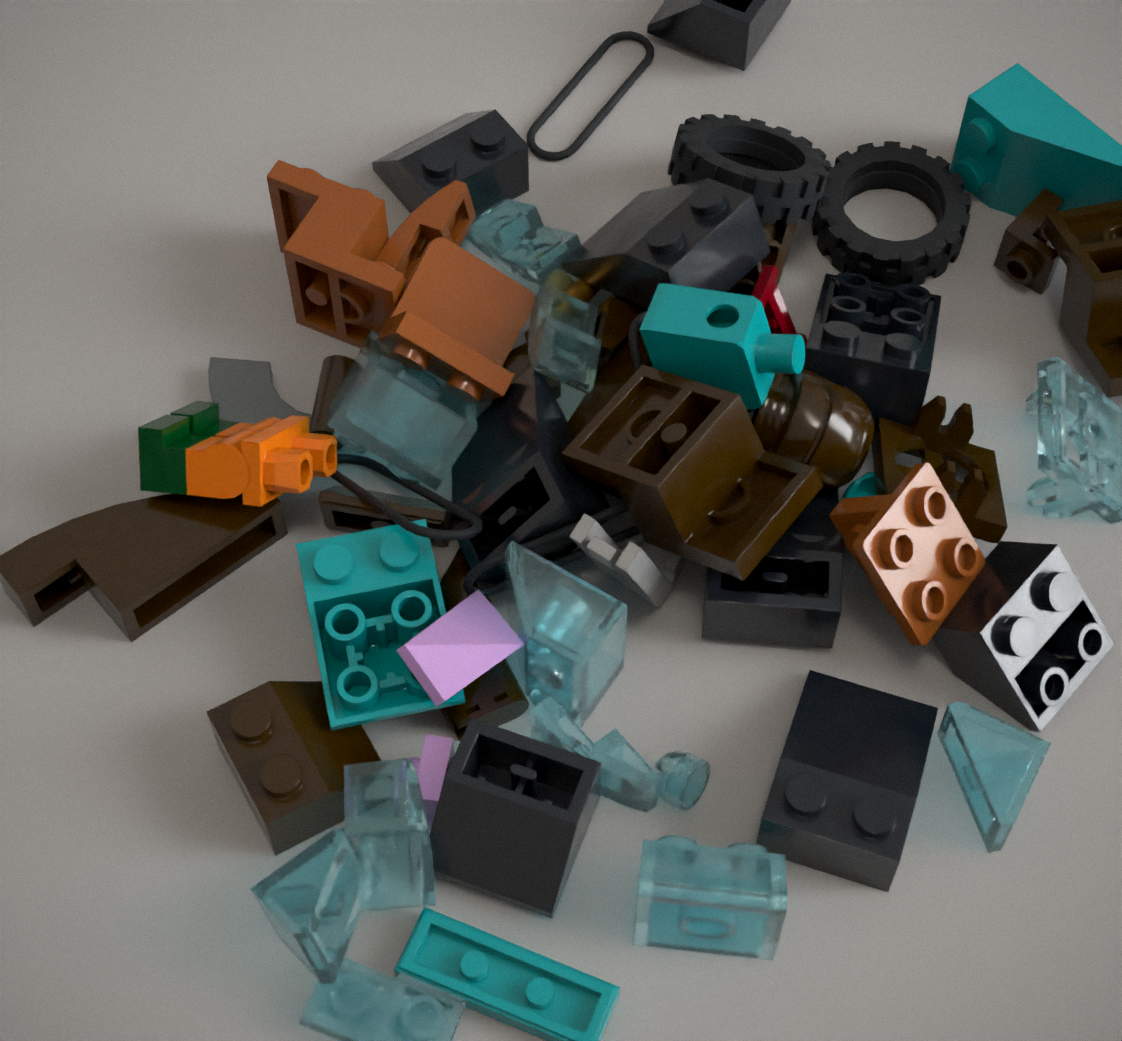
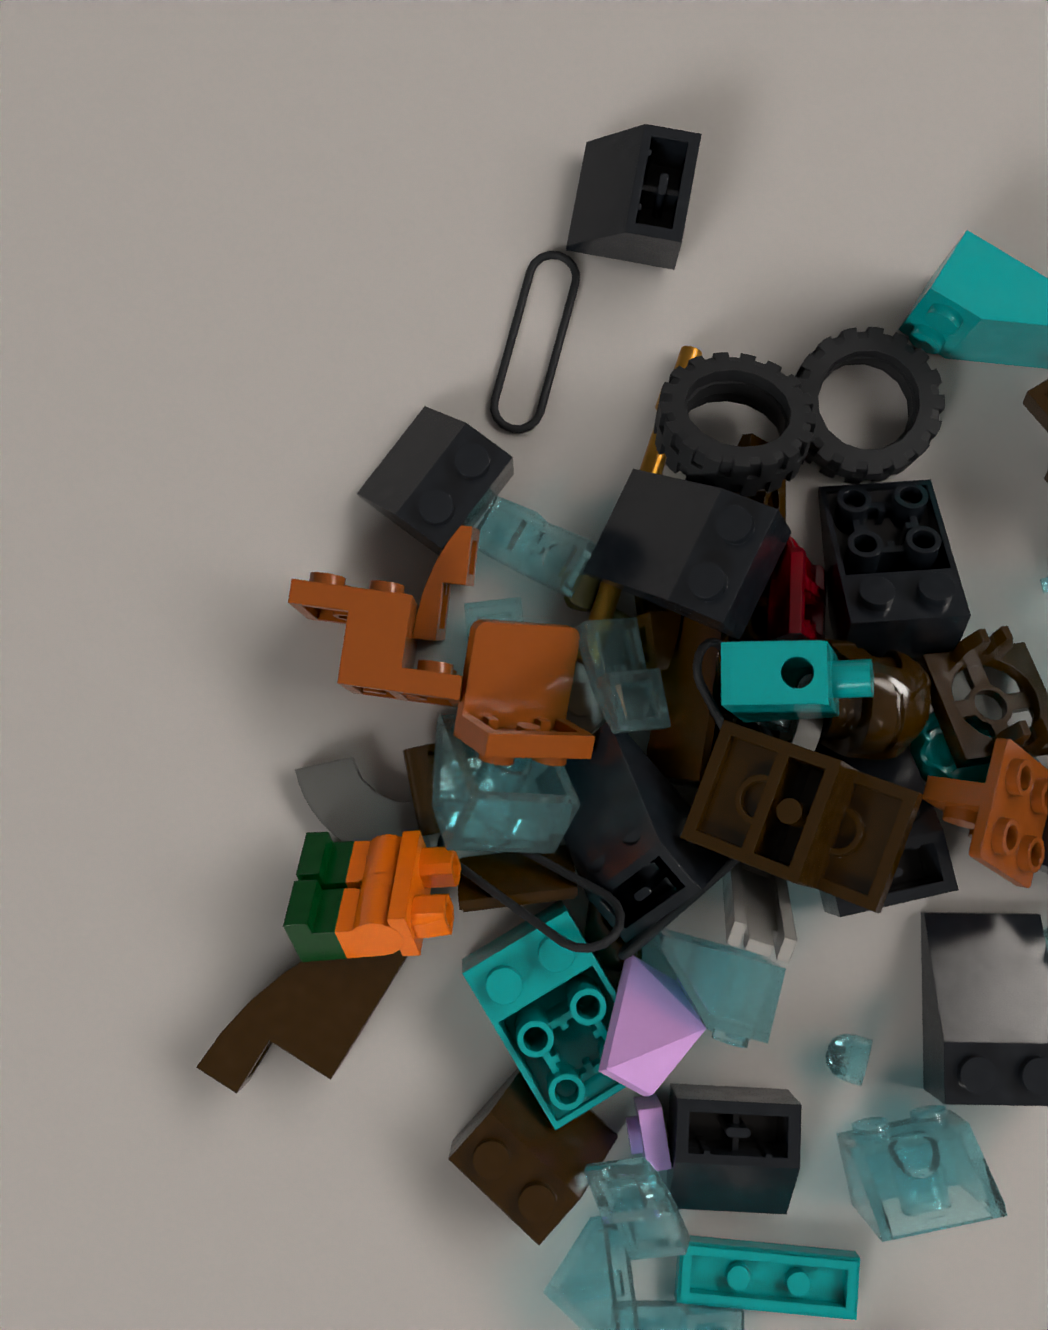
camera: 15 degrees left, 25 degrees up
(624, 773) = (785, 1071): clear light blue slope -> none
(1025, 250) = (999, 398): dark brown bracket -> none

